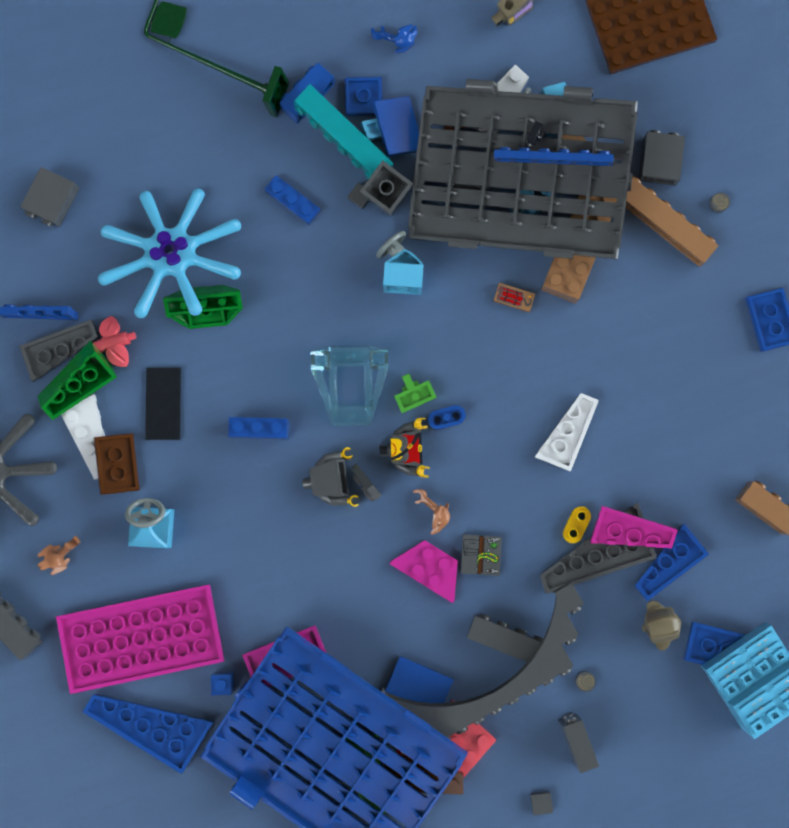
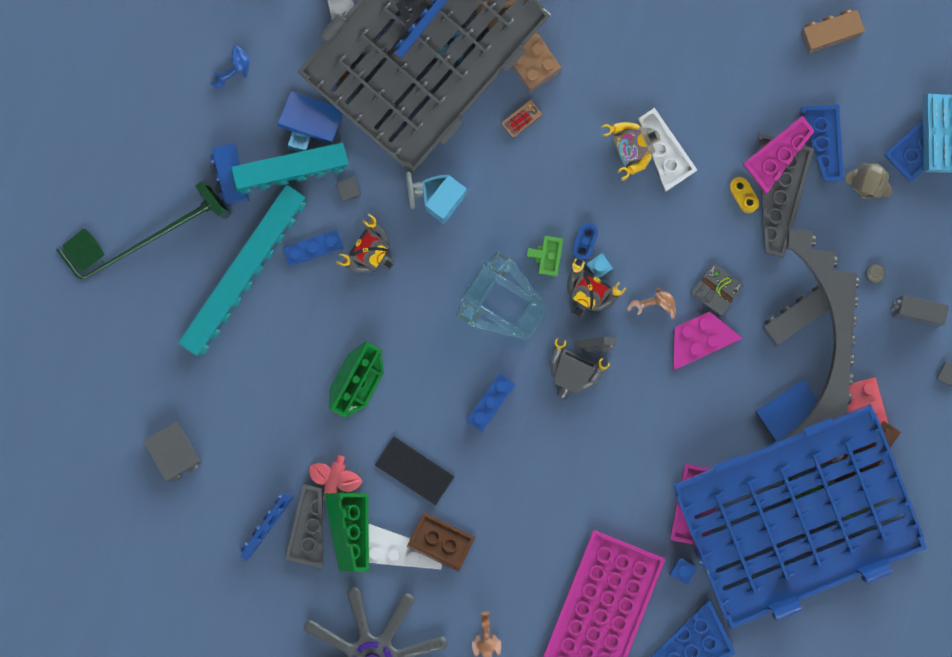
camera: 60 degrees left, 0 degrees up
(149, 525) = (512, 545): medium azure piece -> none
(172, 264) = (283, 369): medium azure animal -> none
(234, 155) = (243, 270): none -> teal brick
(319, 245) = (369, 250): none -> torso
(361, 94) = (262, 129): blue tile -> none
(386, 188) = (360, 162): dark grey slope -> none
(434, 443) = (599, 266): none -> medium azure plate
(554, 403) = (633, 146): none -> torso

